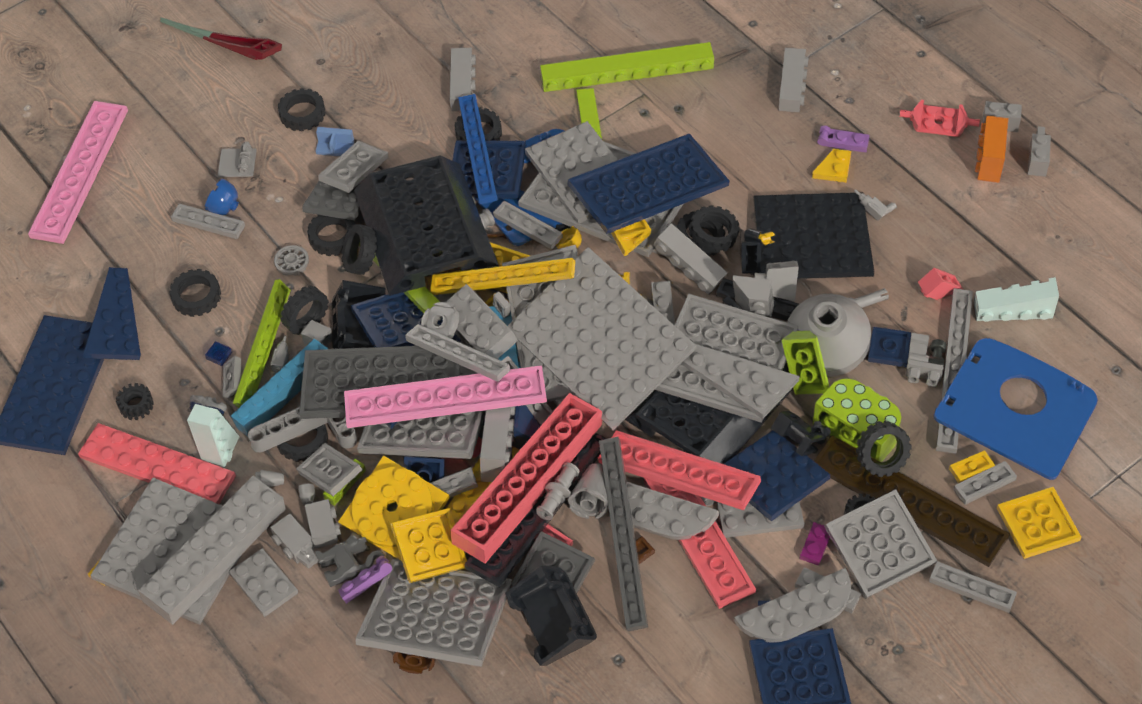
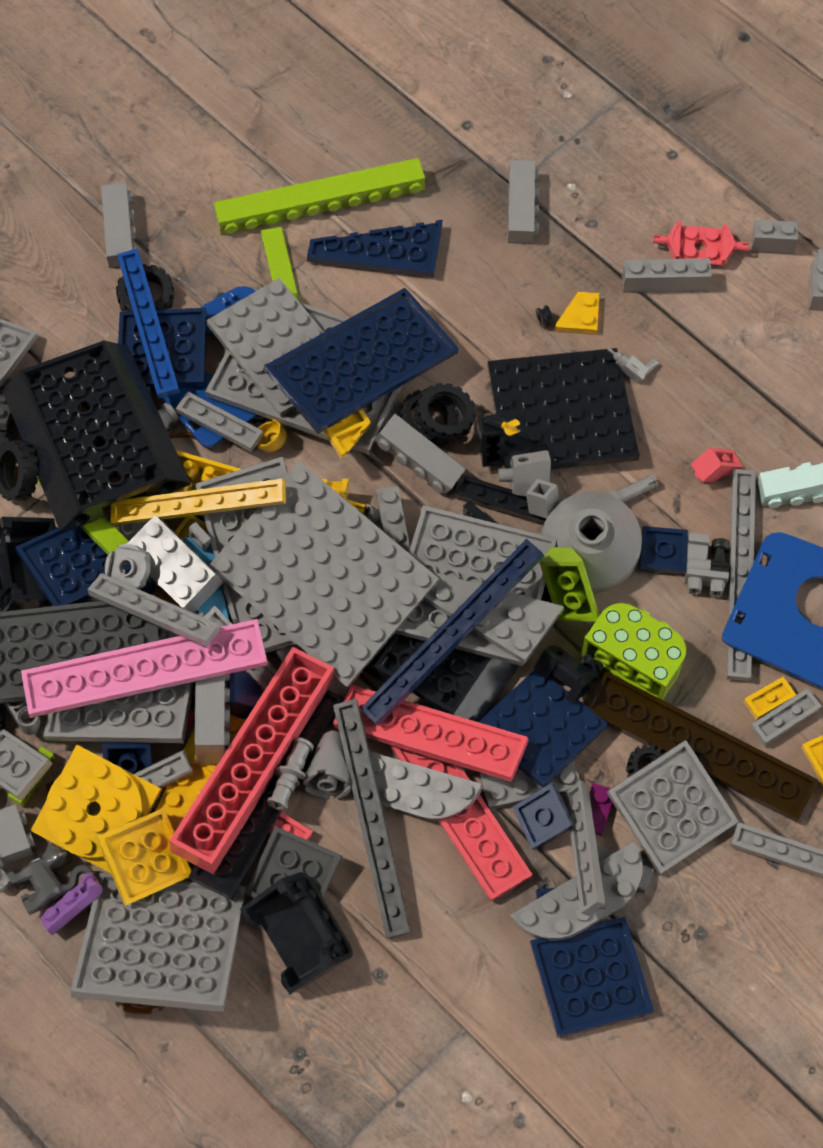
camera: 10 degrees left, 10 degrees up
(644, 549) = (397, 833): reddish brown tile -> none
(679, 109) = (386, 249): none -> dark blue wing
(703, 388) = (452, 632): none -> dark blue plate
(754, 295) = (502, 504): light grey slope -> none
(769, 543) = (543, 816): none -> dark blue plate
(789, 296) = (542, 498): none -> light grey brick
(801, 568) = (585, 849): none -> light grey plate
(803, 164) = (544, 315): none -> black bush
(843, 139) = (588, 277): medium lavender plate -> none
(896, 461) = (652, 680): black tyre -> none
(908, 140) = (666, 275): none -> light grey brick
(992, 150) = (766, 282): orange brick -> none

